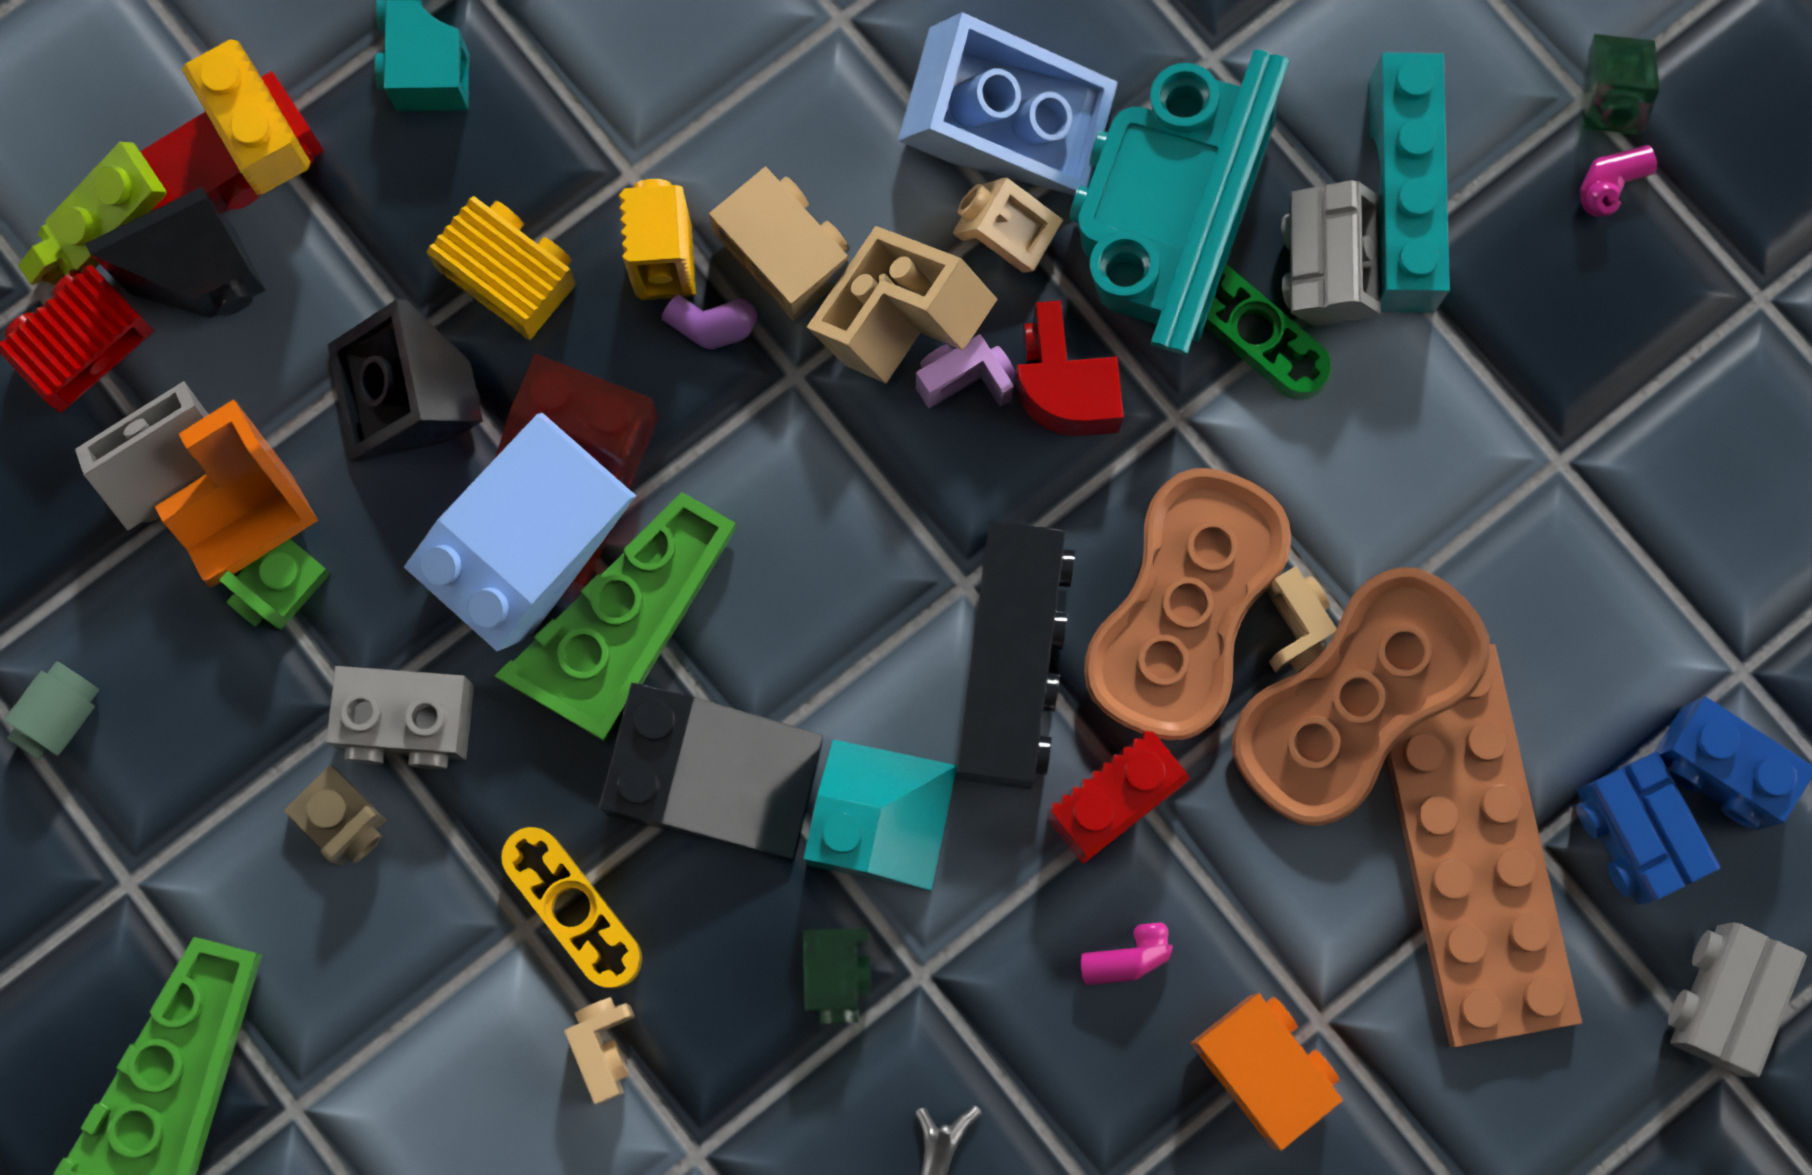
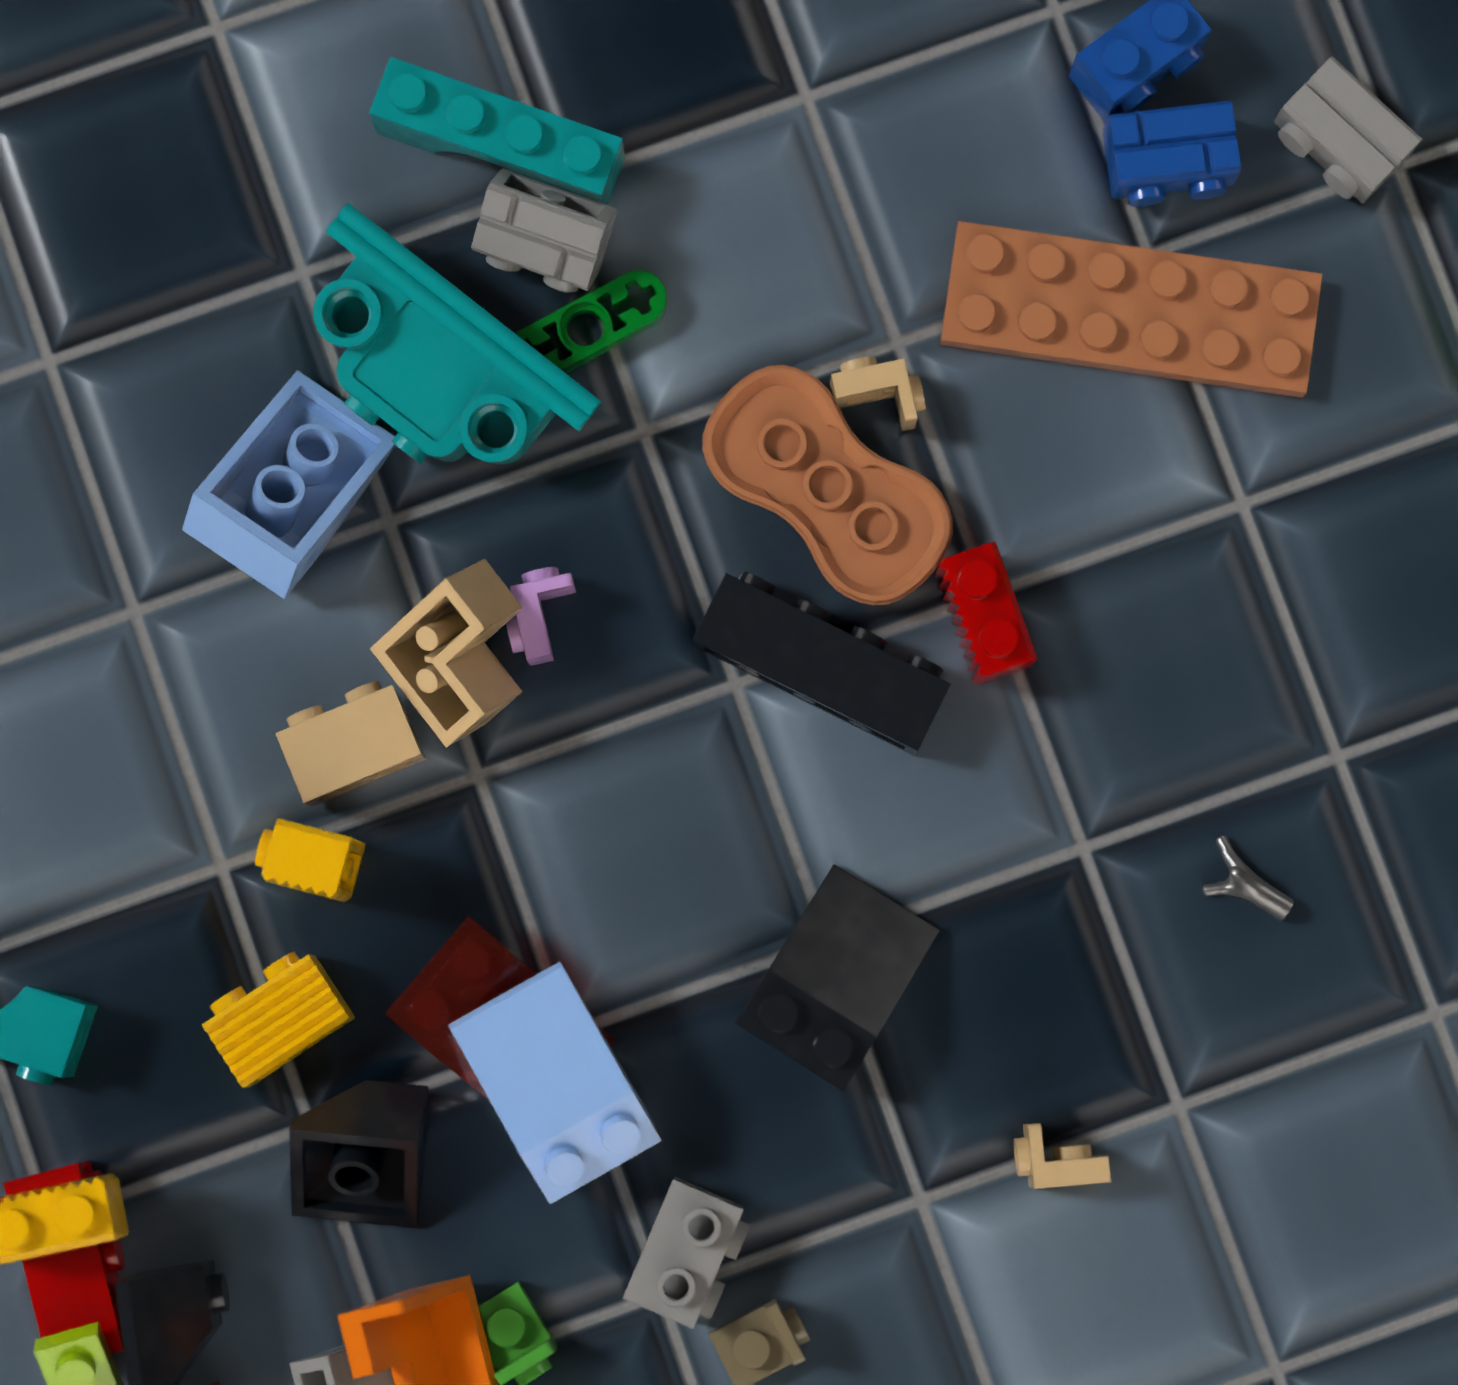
camera: 70 degrees left, 5 degrees up
(555, 860) = (955, 1117): yellow beam -> none
(622, 619) = (672, 1027): bright green wing -> none
(712, 327) = (406, 836): medium lavender arm -> none
(835, 973) = (1060, 924): clear green brick -> none
(880, 815) = (926, 835): teal slope -> none
(1007, 222) = (402, 523): tan bracket -> none
(1063, 394) = (587, 533): red brick -> none
(1130, 963) = (1138, 653): dark pink arm -> none
(1268, 1069) = (1274, 566): orange brick -> none
(1394, 661) = (952, 319): nougat plate -> none

